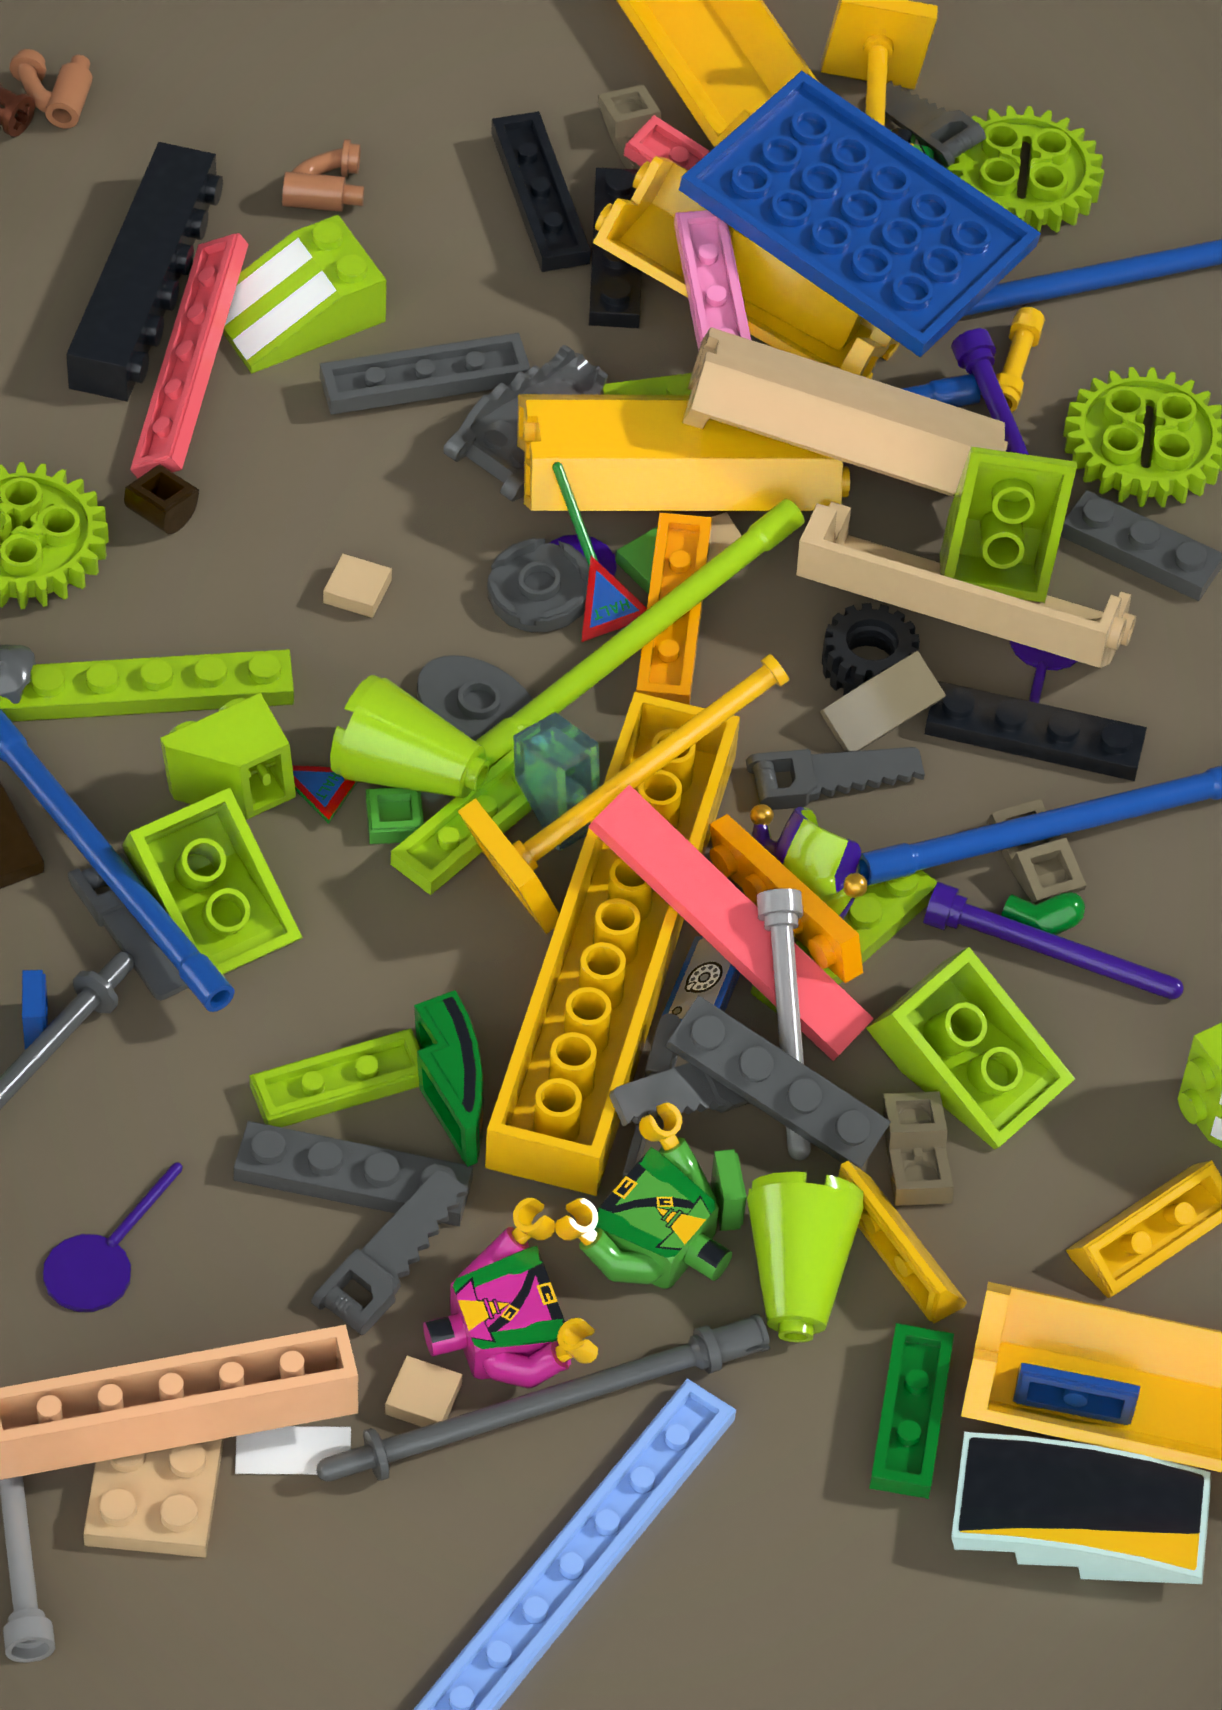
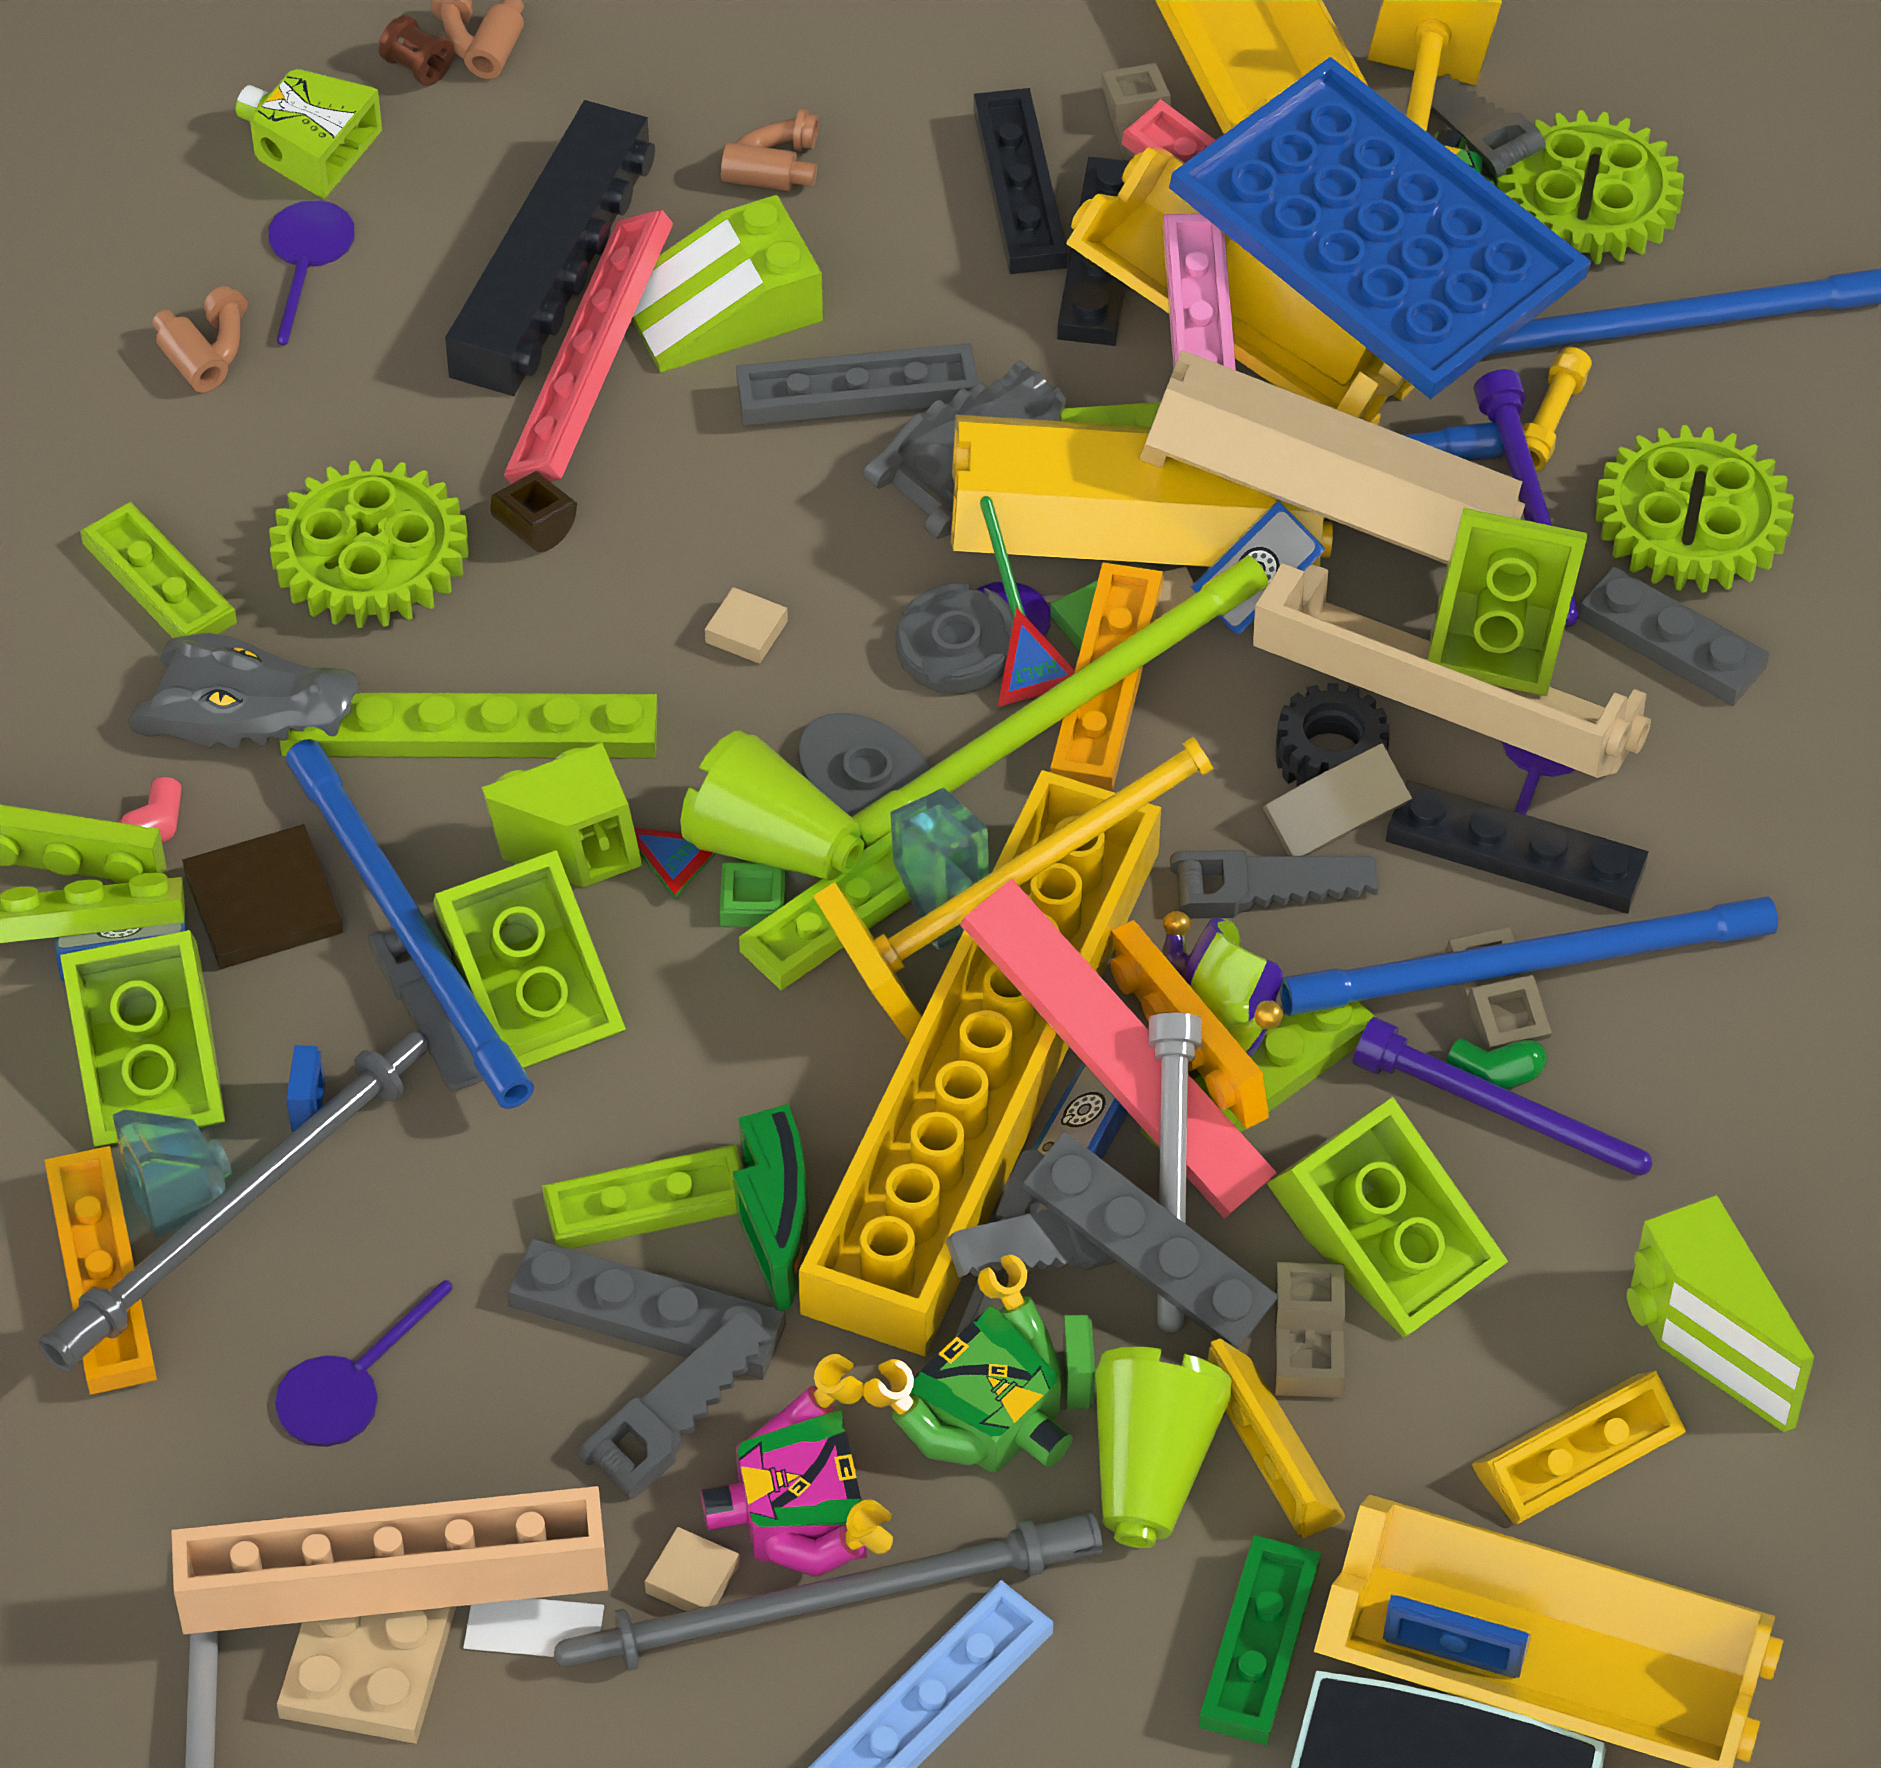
camera: 10 degrees right, 0 degrees up
(804, 485) = (1271, 541): none -> slope

